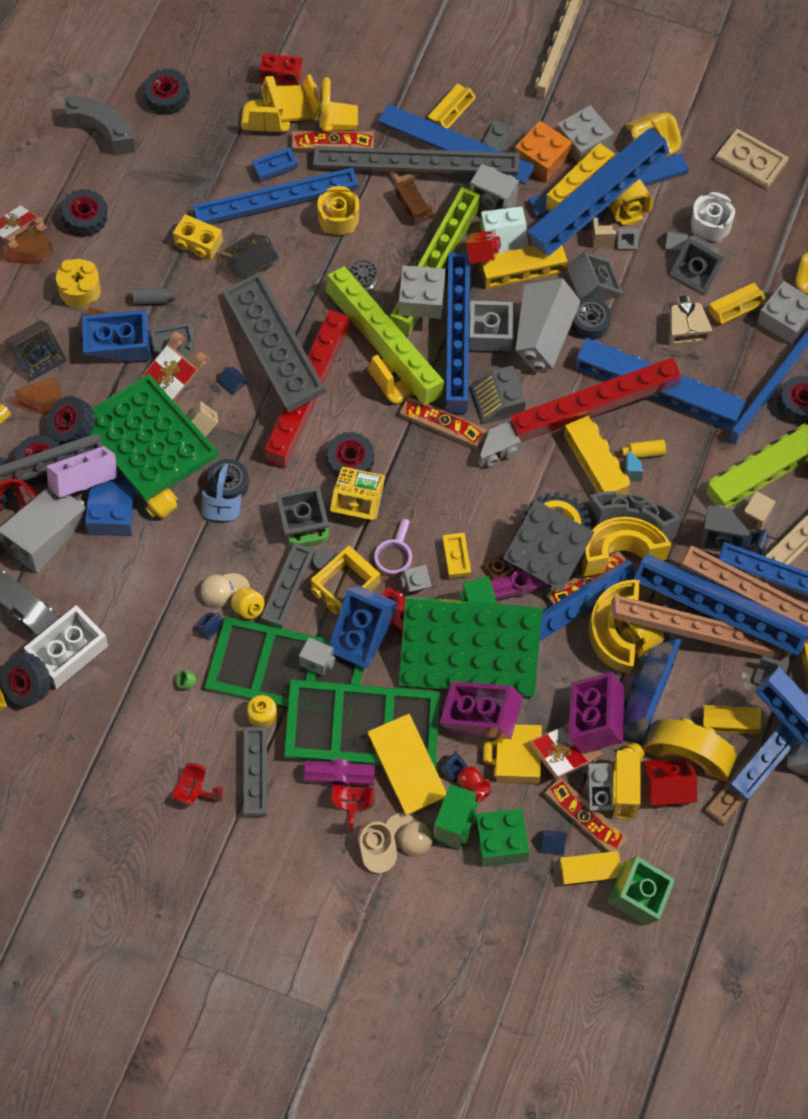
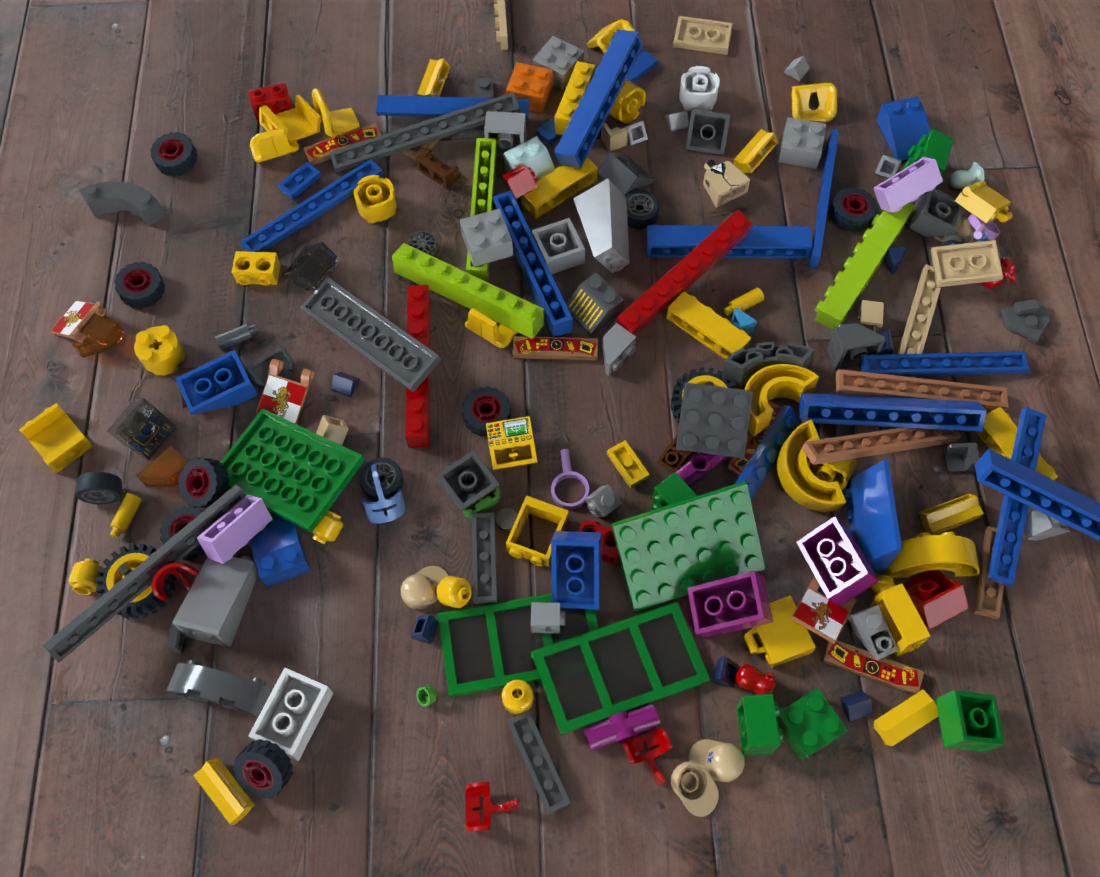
camera: 20 degrees left, 0 degrees up
(407, 764) = (684, 690): yellow tile -> none

